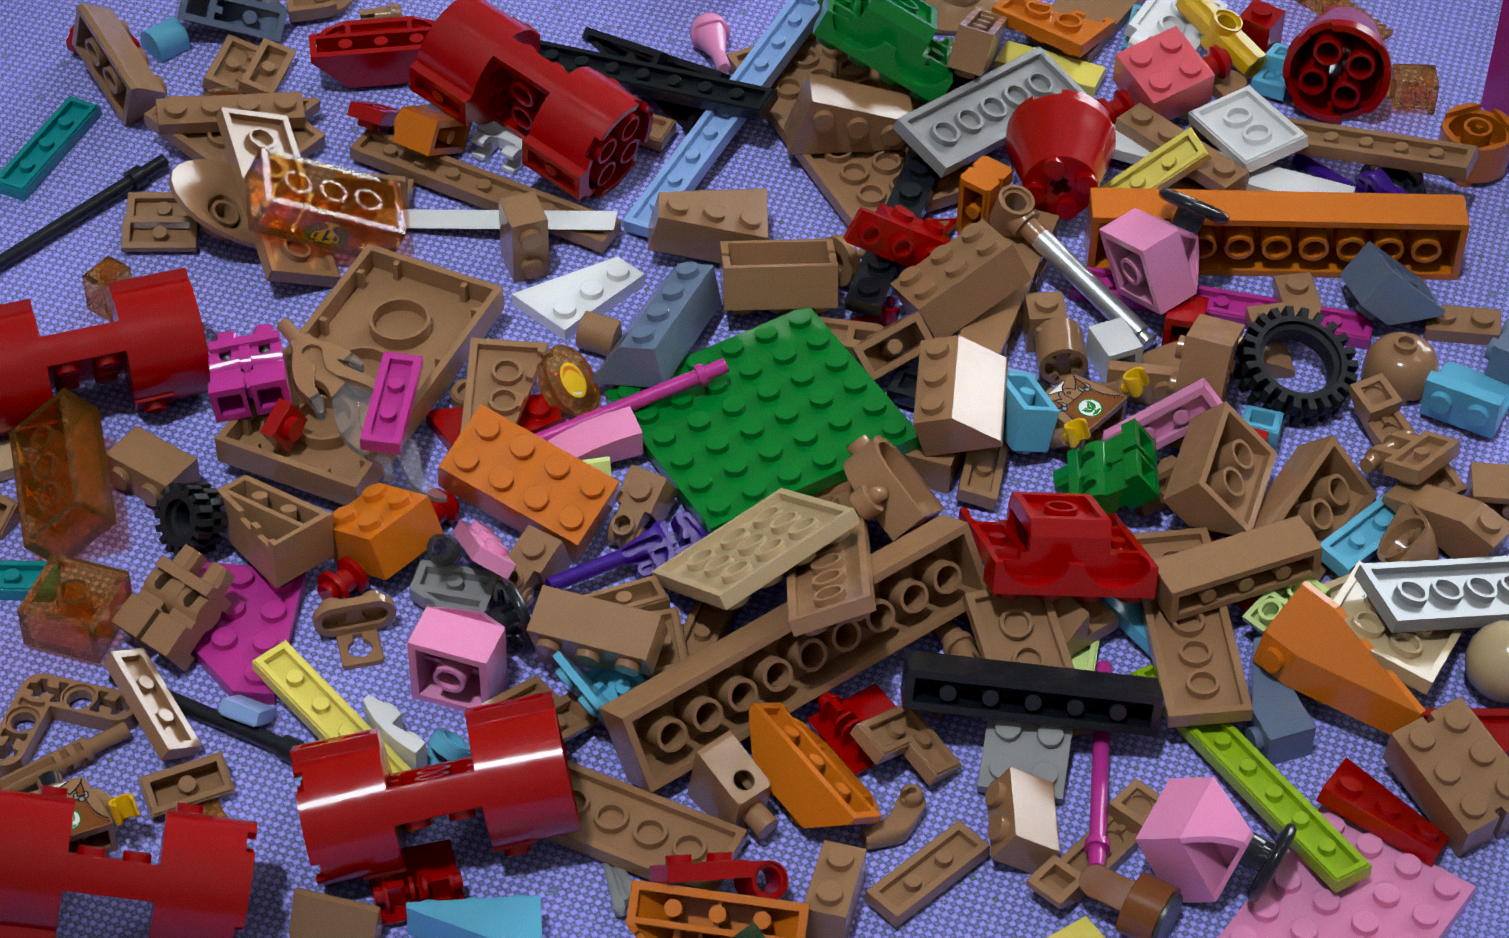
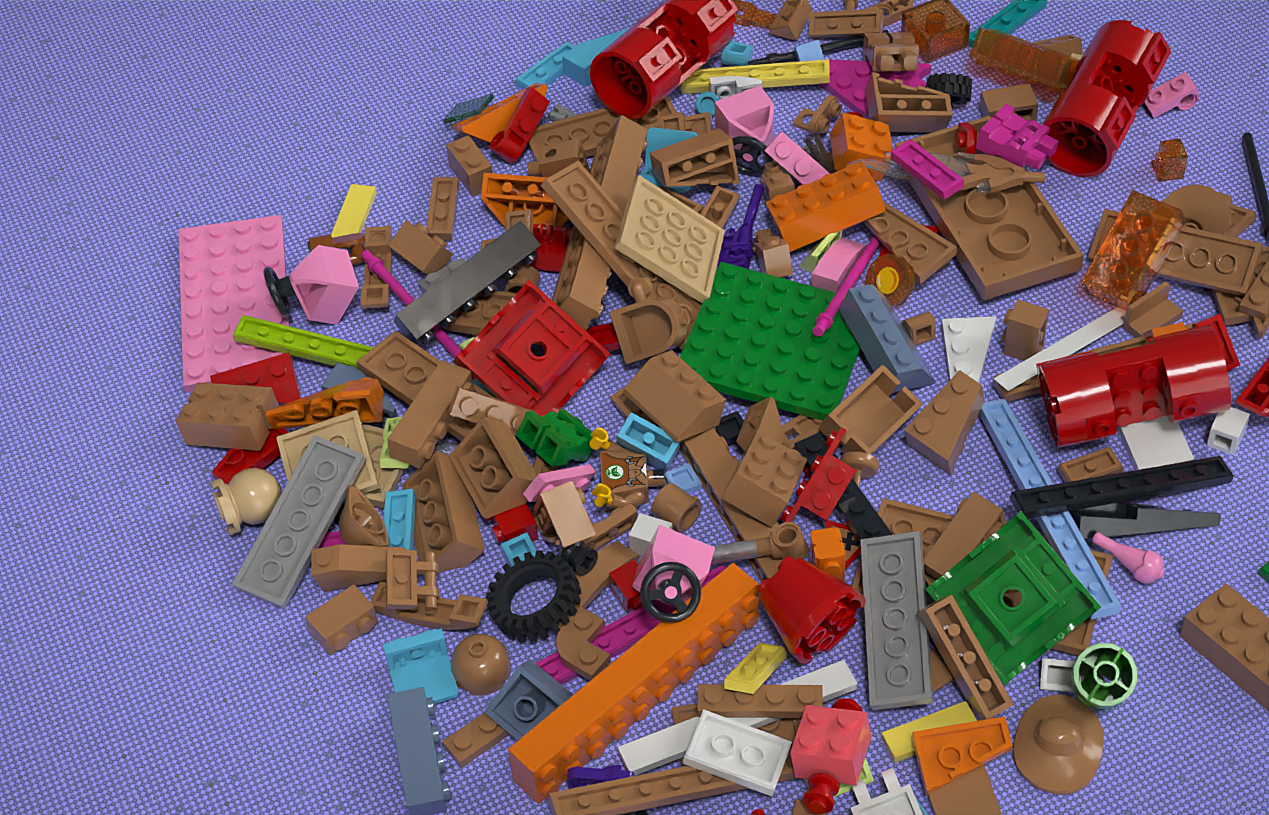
camera: 140 degrees right, 5 degrees up
(900, 822) = (480, 221): medium nougat arm -> none
(1037, 309) = (706, 520): medium nougat brick -> none
(1169, 516) = (474, 405): none -> medium nougat plate

